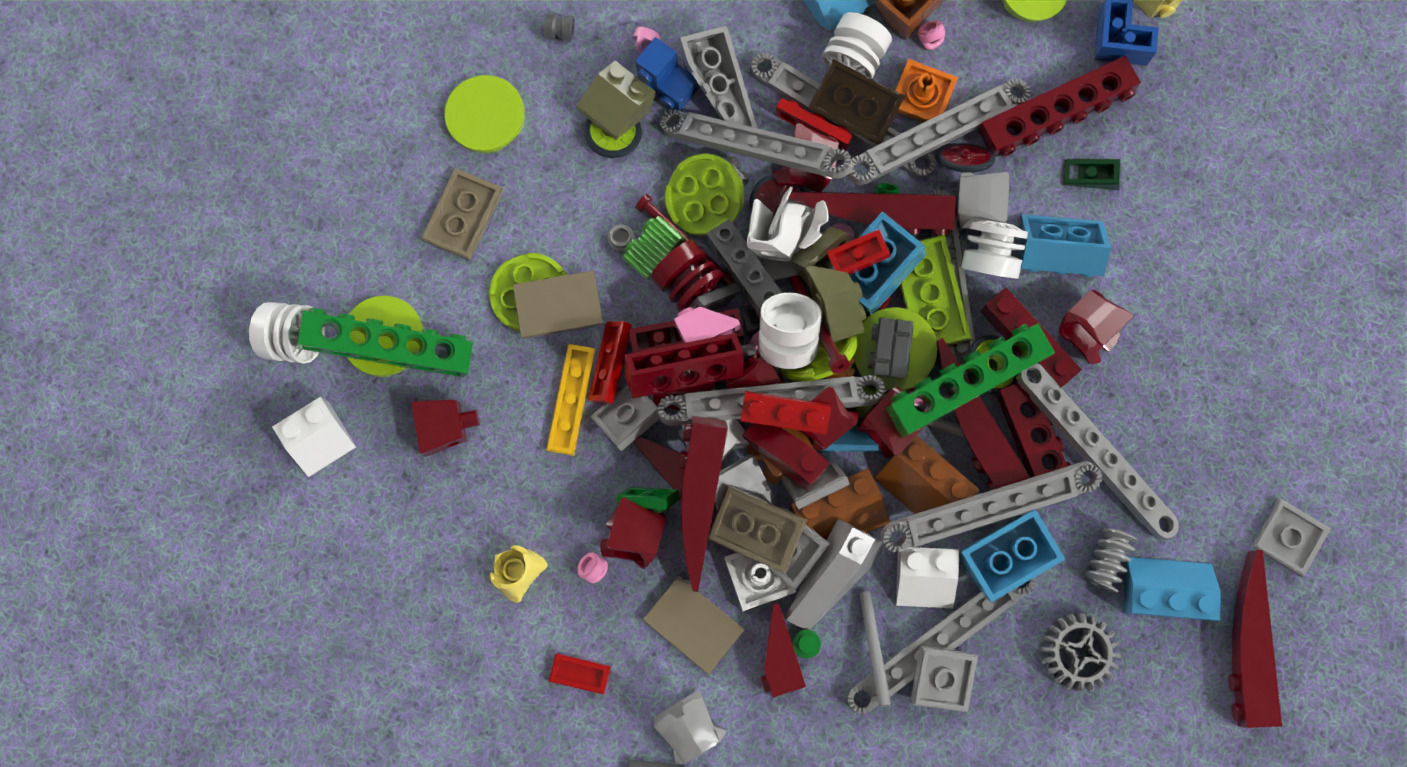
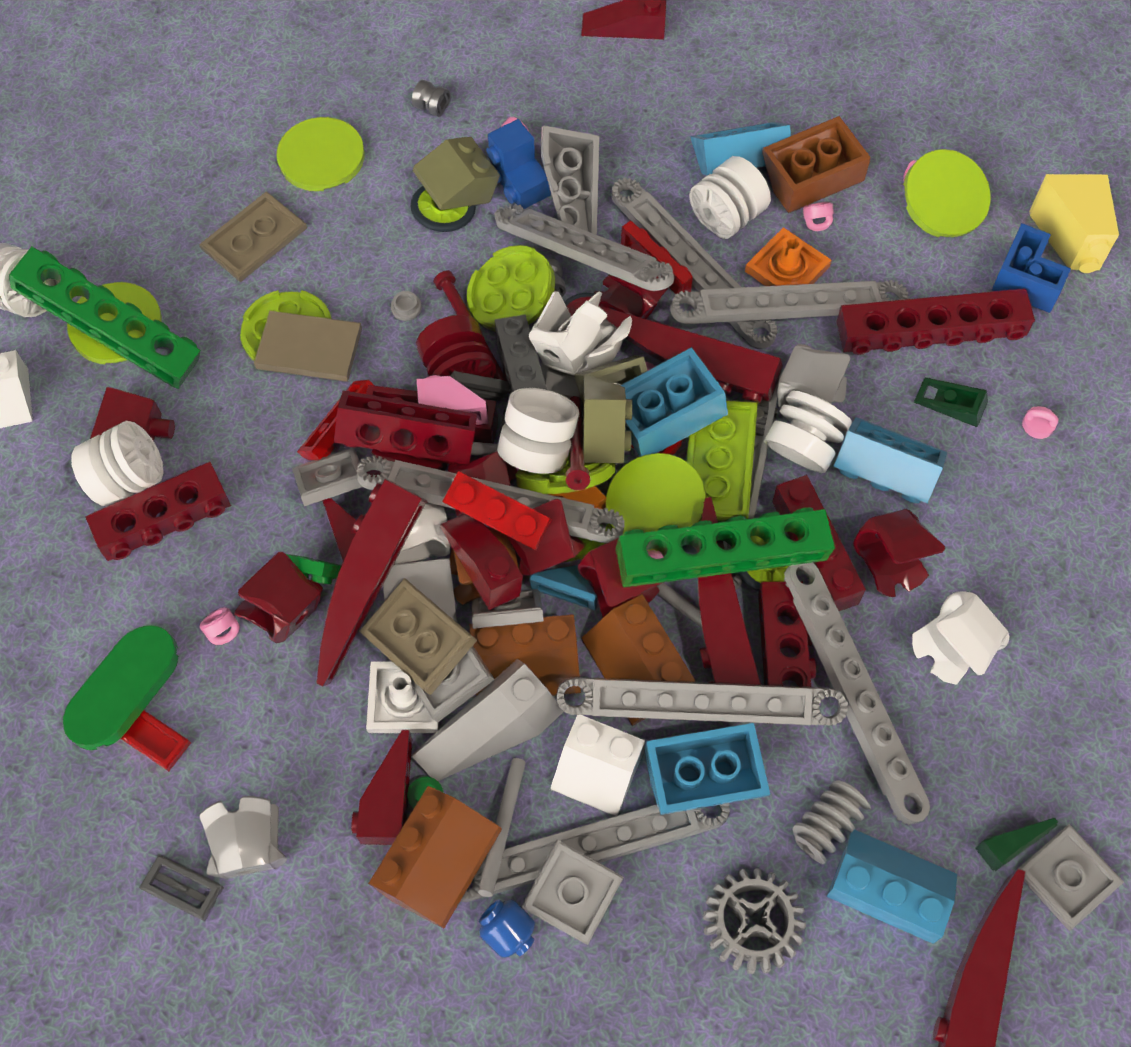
camera: 15 degrees right, 15 degrees down
(455, 468) = (117, 463): none -> white wheel
(466, 517) = (142, 508): none -> dark red brick
(516, 571) = (134, 600): light yellow hair -> none
(539, 644) = (120, 687): none -> green tile
(571, 399) = (279, 447): yellow tile -> none
(652, 246) = (438, 306): bright green brick -> none
(693, 625) = (305, 728): dark tan tile -> none
(837, 691) = (435, 857): none -> dark orange slope
(856, 102) = (709, 244): dark brown tile -> none
(859, 253) = (649, 377): red plate -> none
(892, 348) = (650, 492): dark grey brick -> none
(906, 722) = (507, 928): none -> blue head
(966, 157) = (810, 336): wheel -> none
(1163, 381) = (960, 637): none -> white piece
(1167, 170) = (1039, 422): none -> bright pink tile
(1244, 532) = (1006, 846): none -> dark green slope

